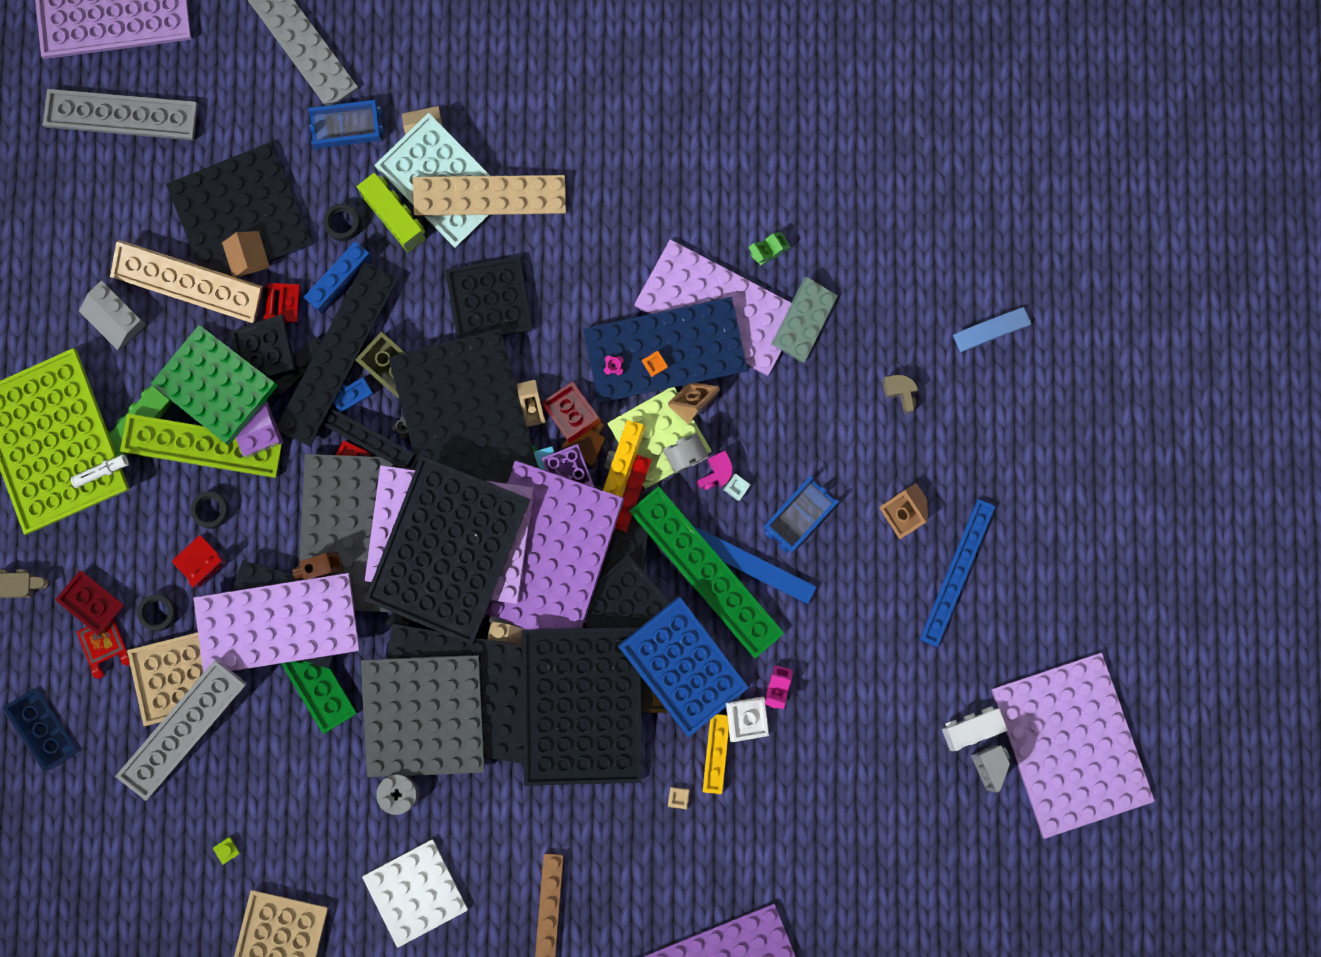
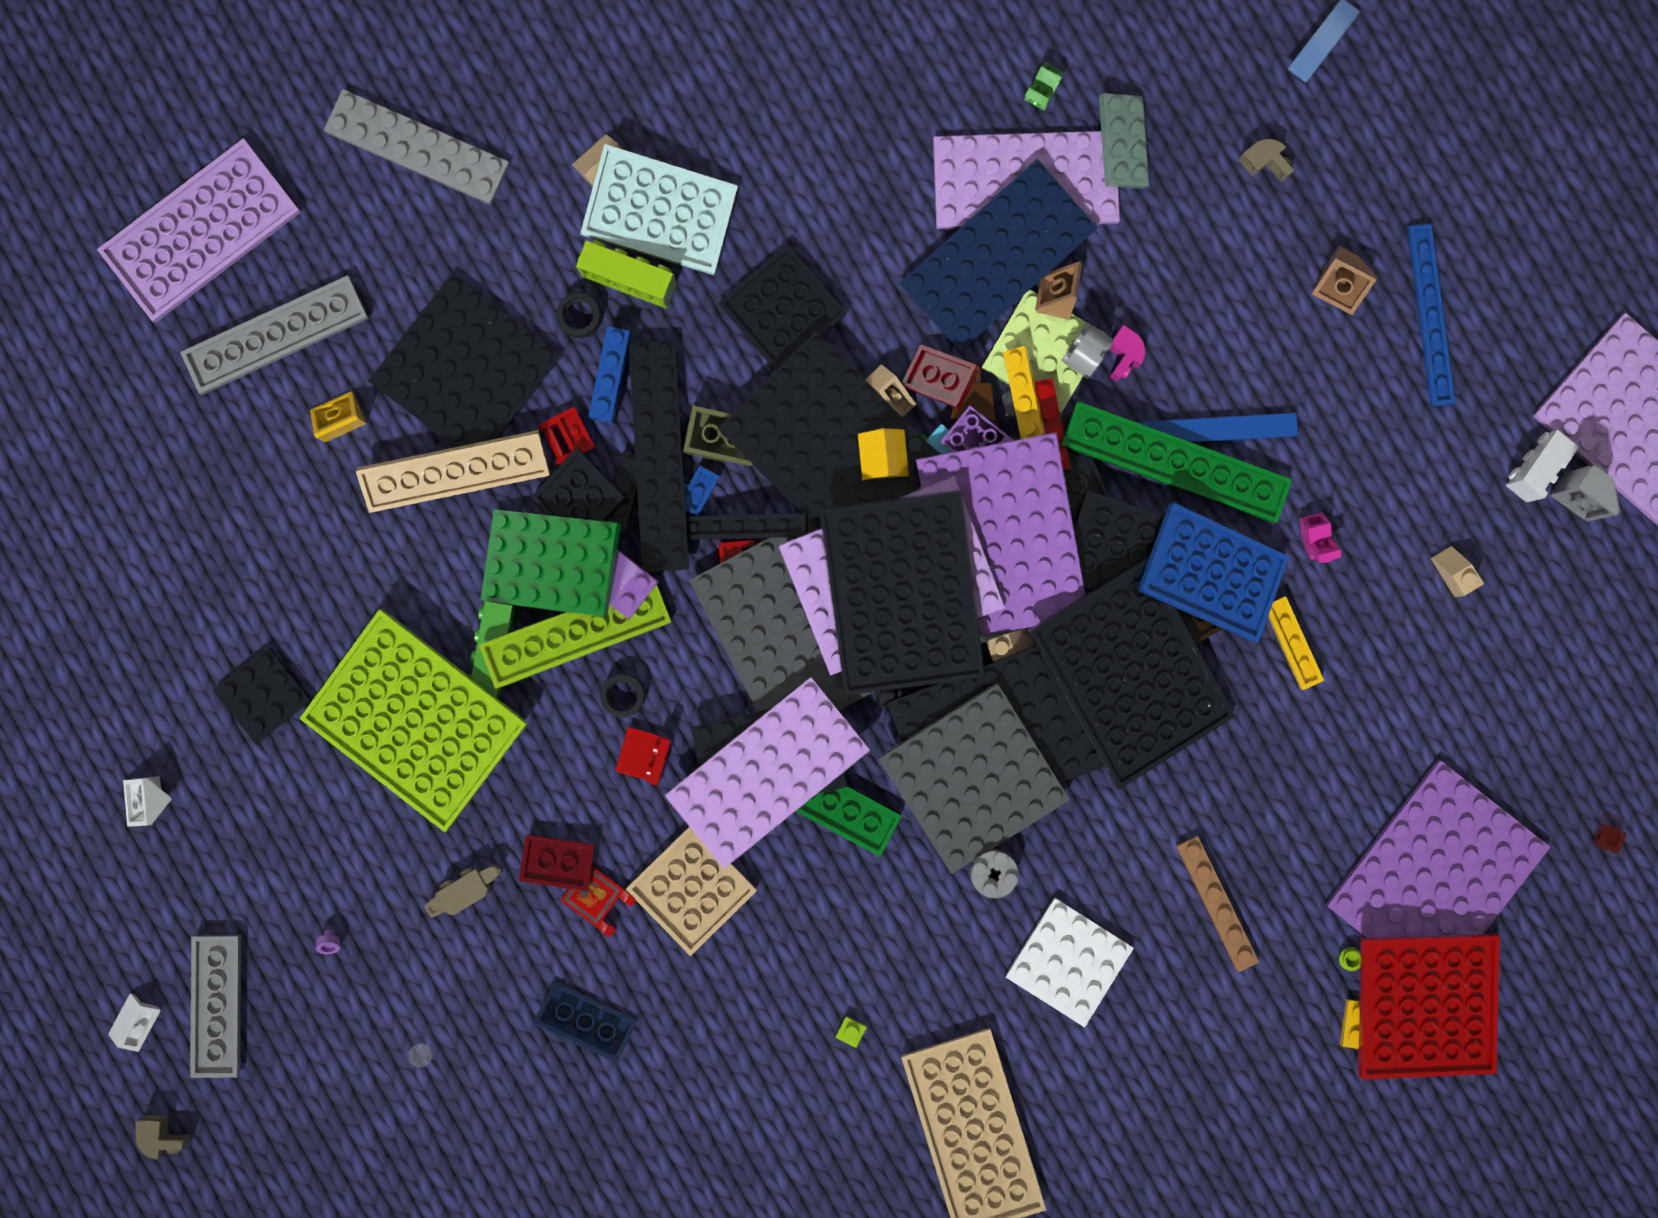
camera: 30 degrees left, 5 degrees up
(106, 468) = (492, 713): white pin -> none
(111, 316) = (395, 553): light grey slope -> none
(128, 196) = (336, 417): none -> yellow slope
(141, 612) = (622, 847): black tyre -> none
(180, 729) = (733, 937): light grey plate -> none
(245, 253) = (498, 406): medium nougat slope -> none
(318, 566) = (780, 682): reddish brown torso -> none
(345, 124) = (520, 208): door -> none
(398, 427) = (766, 497): dark grey plate -> none
(489, 195) = (718, 197): tan plate -> none
(495, 444) = (883, 454): none -> yellow slope
(612, 360) = (962, 303): dark pink plate -> none
(654, 364) = (999, 275): orange plate -> none
(678, 798) = (1280, 710): tan tile -> none
(736, 487) = (1155, 357): light aqua plate -> none
(747, 719) = (1305, 589): white tile -> none
(799, 515) = (1237, 349): clear door -> none
(866, 770) = (1457, 572): none -> tan slope

